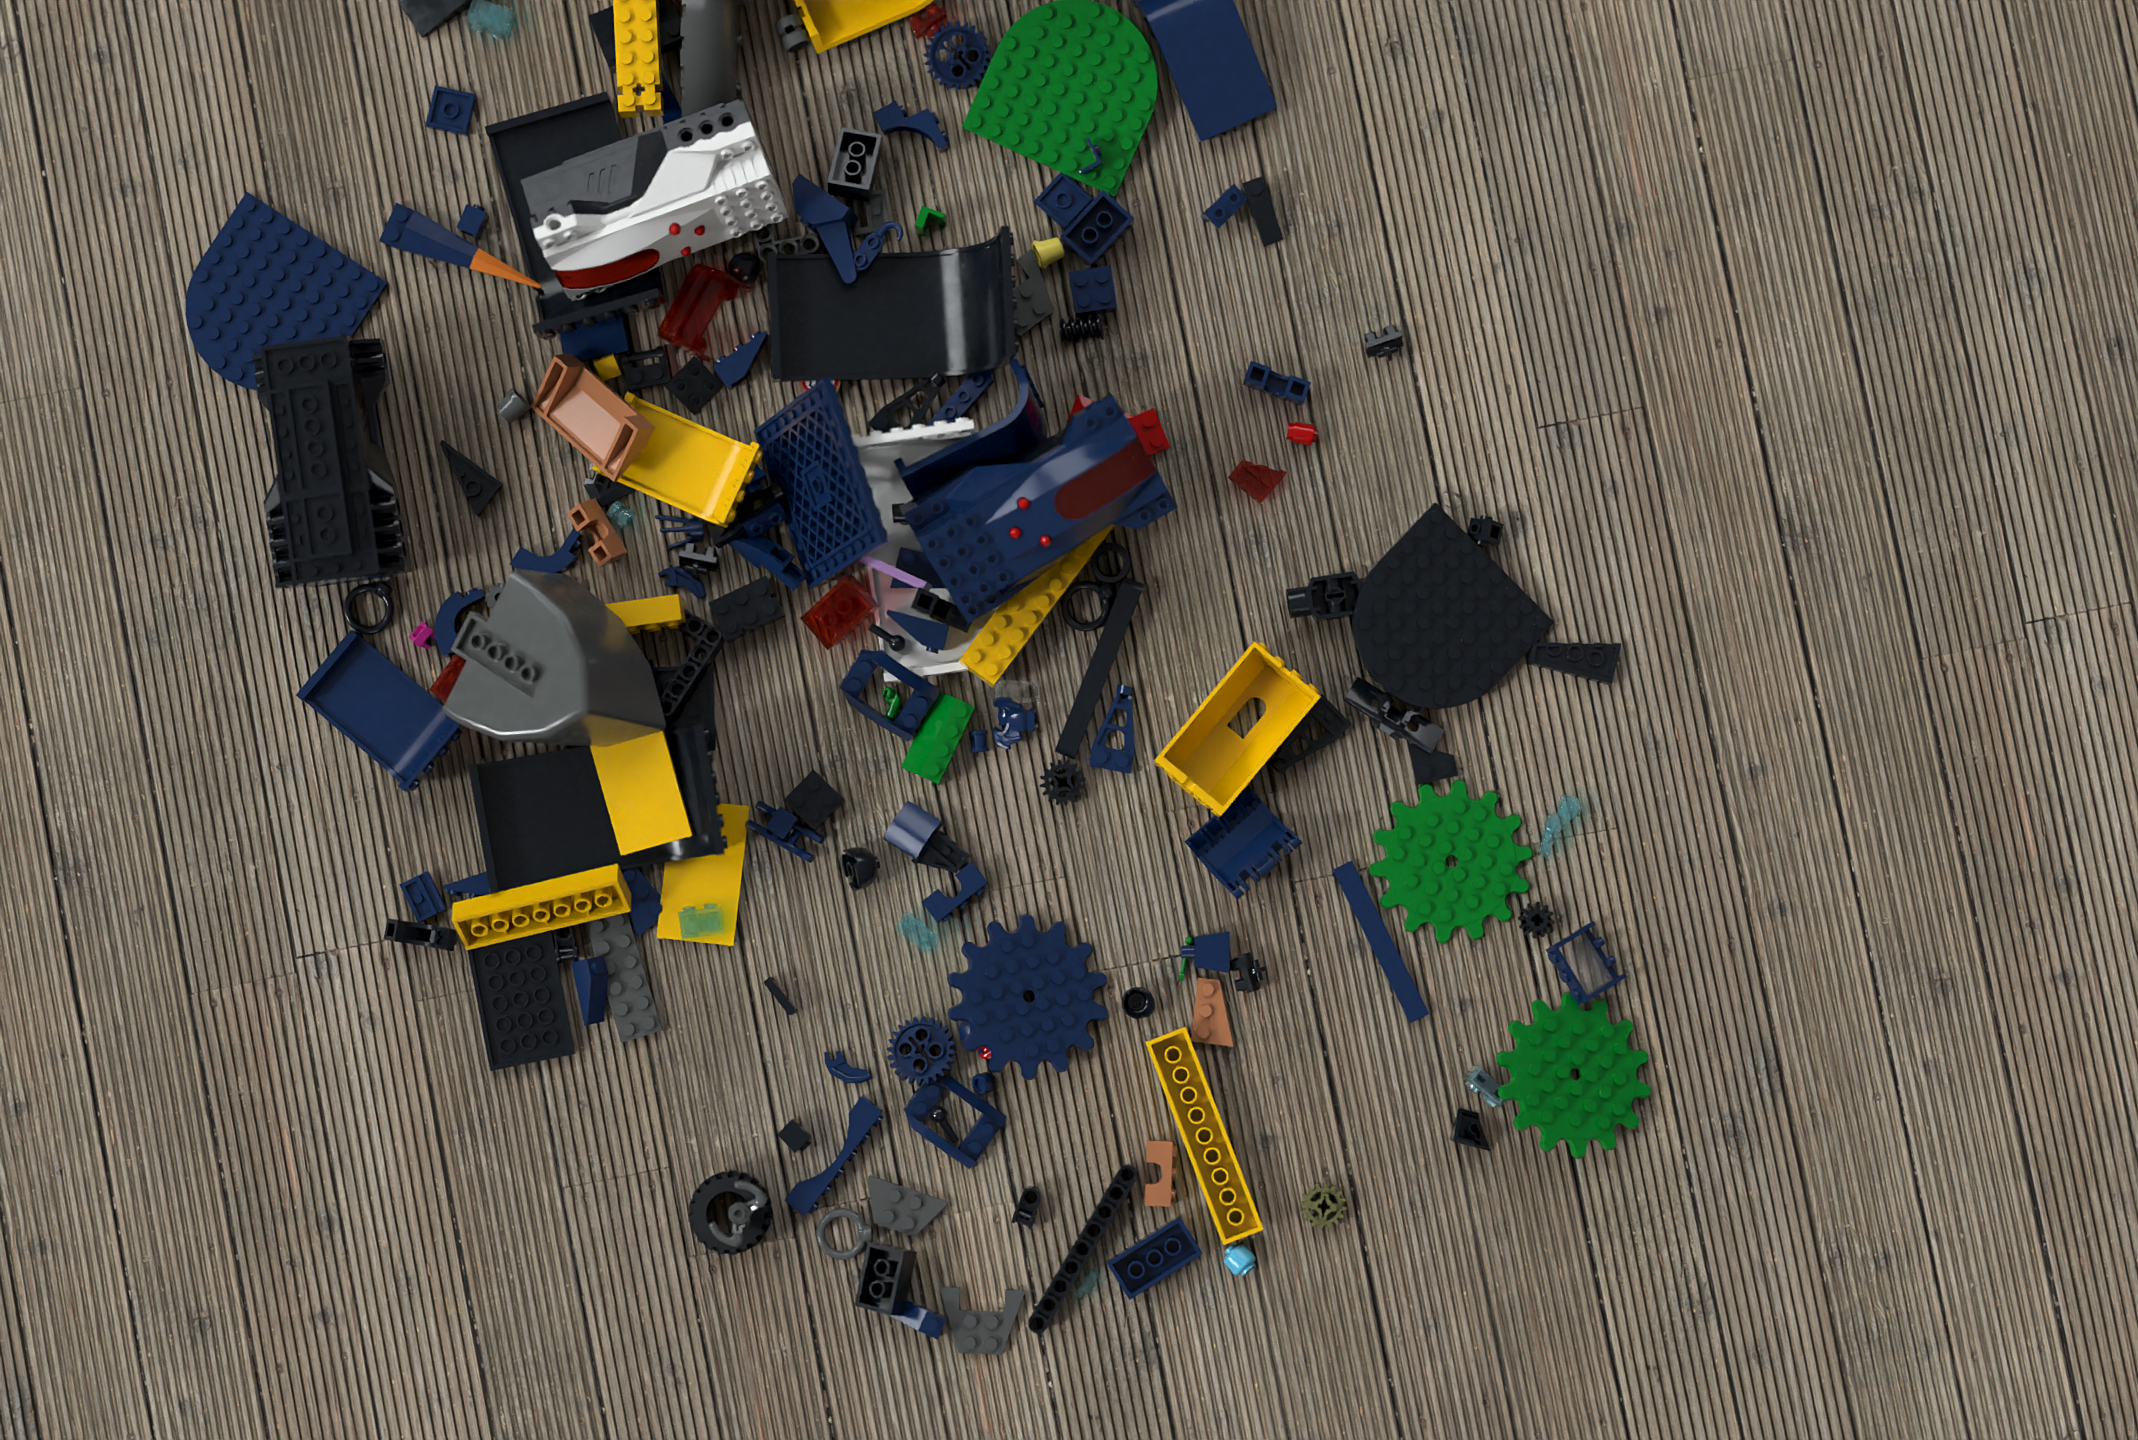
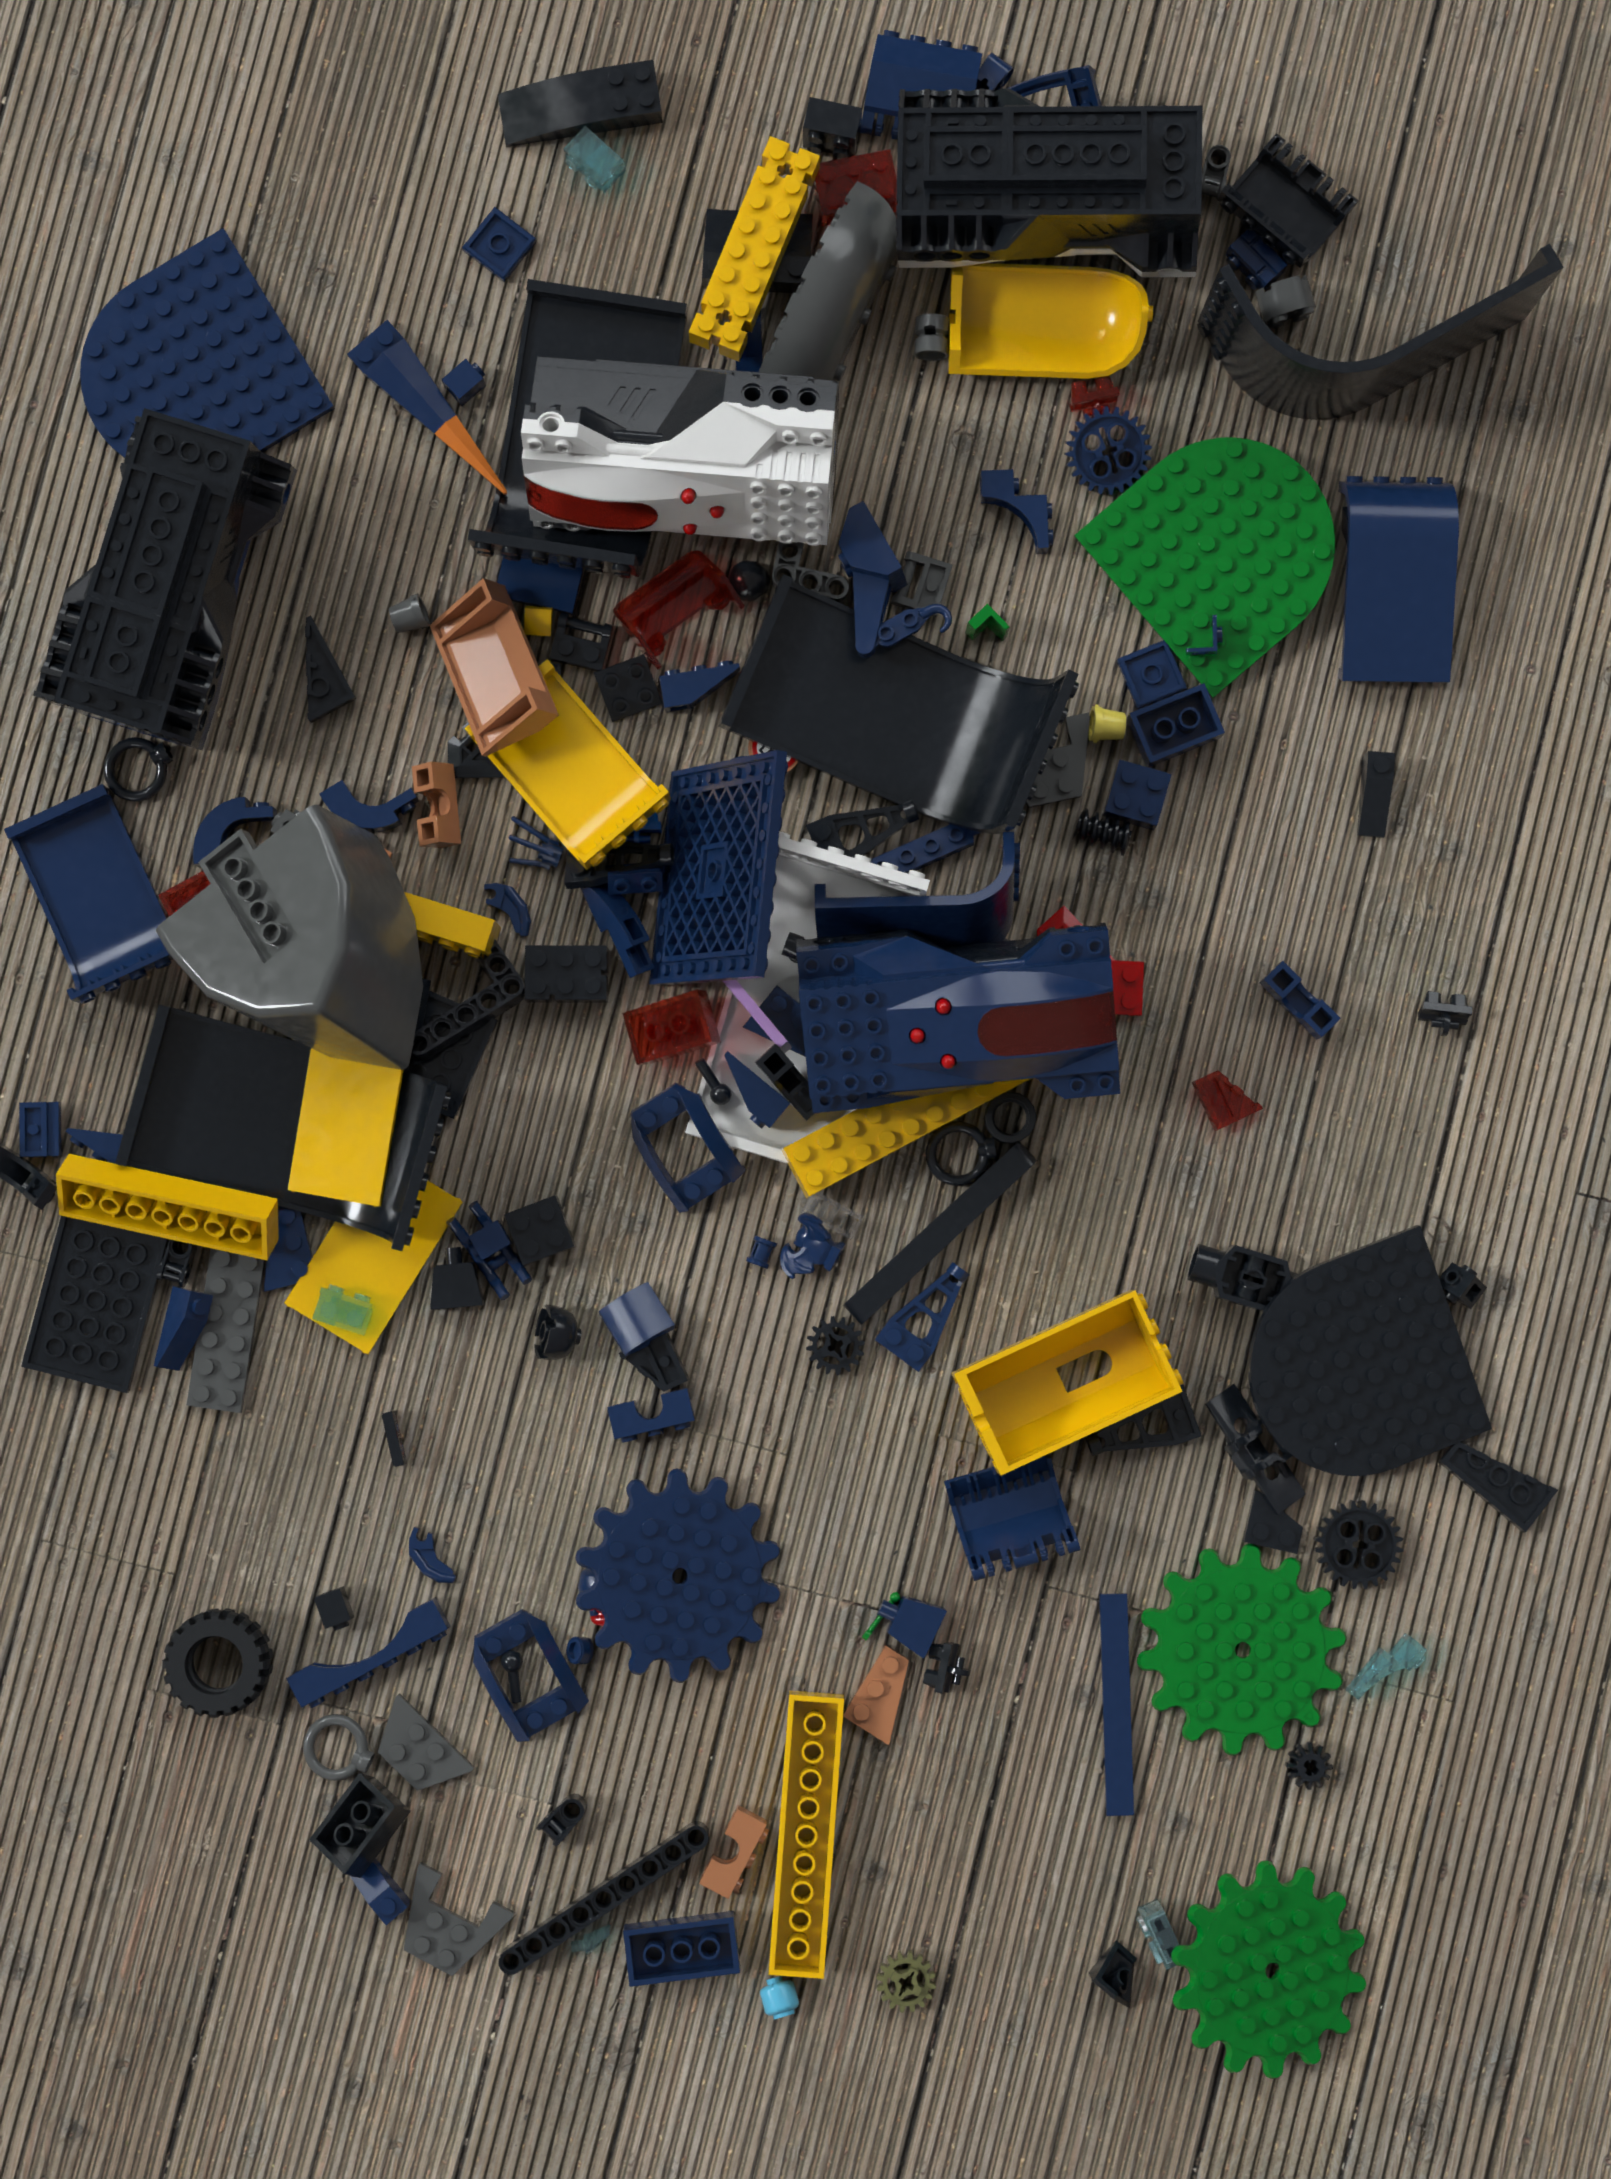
camera: 20 degrees right, 0 degrees up
(420, 635) = (180, 826): dark pink tile -> none
(620, 514) = (473, 796): clear light blue wheel -> none
(696, 562) = (534, 893): black hips -> none
(739, 1214) = (224, 1674): dark grey piece -> none
(772, 866) = (455, 1283): none -> black torso
(855, 164) = (932, 520): black brick -> none
(893, 700) = (686, 1158): green arm -> none
(907, 1063) = (502, 1587): dark blue gear -> none
(917, 932) = (586, 1439): clear light blue bracket -> none
(938, 737) = (716, 1226): green slope -> none
(1138, 1003) = (802, 1642): black hair -> none
(1225, 206) = (1335, 768): dark blue bracket -> none
(1302, 433) = (1301, 1072): red brick -> none
(1516, 742) = (1383, 1546): none -> black gear
(1583, 964) = (1341, 1845): window -> none

